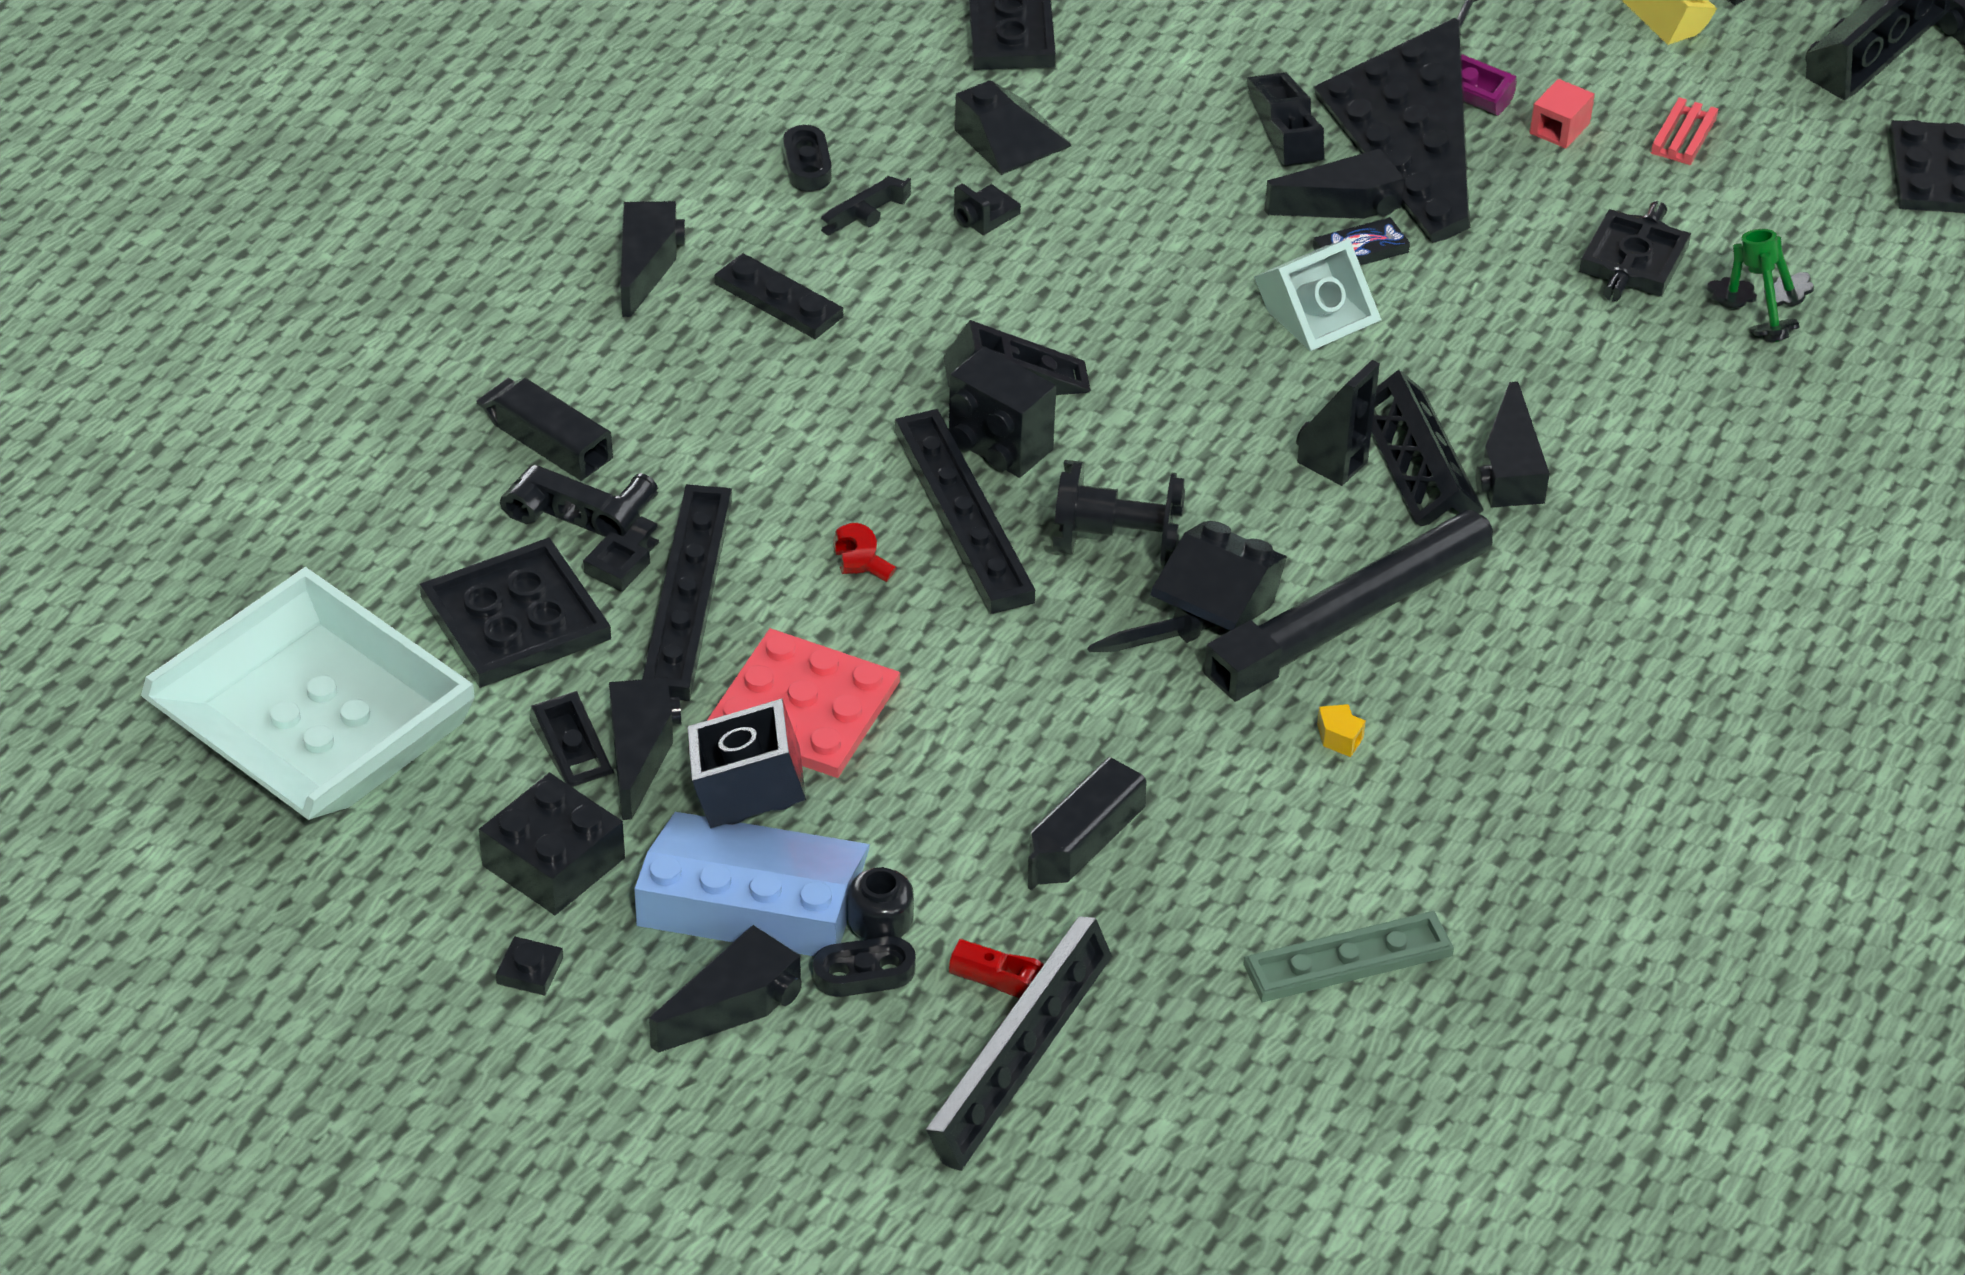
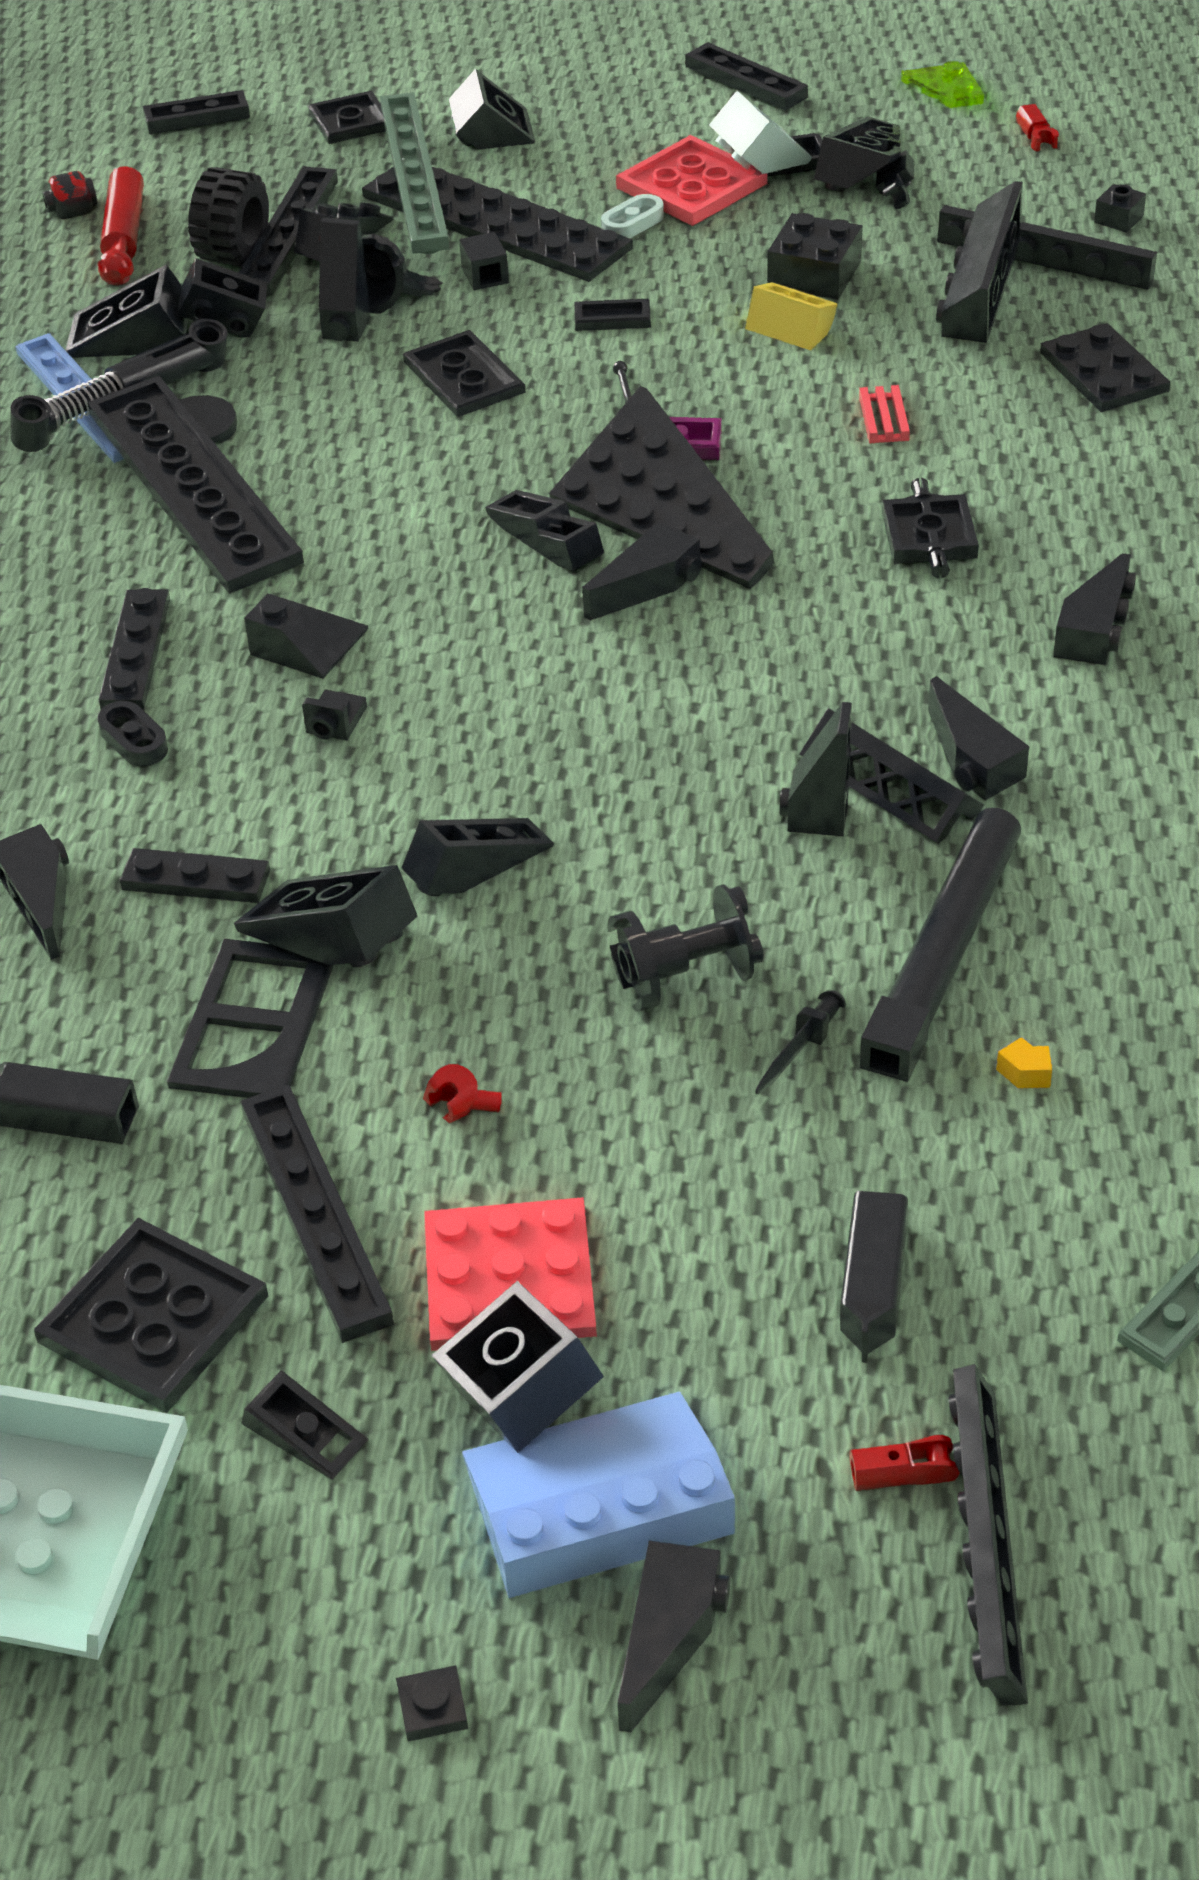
camera: 25 degrees left, 0 degrees up
(552, 843) = (369, 1552): black brick -> none
(575, 502) = (97, 1171): black beam -> none
(621, 559) = (225, 1206): black plate -> none
(641, 734) = (369, 1377): black slope -> none
(742, 470) = (277, 1063): none -> black window
(860, 373) = (334, 915): none -> black slope
(862, 85) = (135, 646): none -> black plate
(863, 965) = (770, 1527): black plate -> none
(865, 204) = (218, 757): black piece -> none
(880, 904) = (753, 1452): black head -> none
(965, 511) = (528, 1009): black plate -> none
(1002, 412) = (504, 896): black brick -> none
(1220, 575) = (820, 965): black slope -> none
(1319, 295) = (697, 670): light aqua slope -> none
(1370, 240) = (693, 614): black tile -> none
(1562, 113) = (778, 436): coral brick -> none
(1704, 389) = (1089, 614): none -> black slope
(1760, 252) = (1074, 511): plant -> none

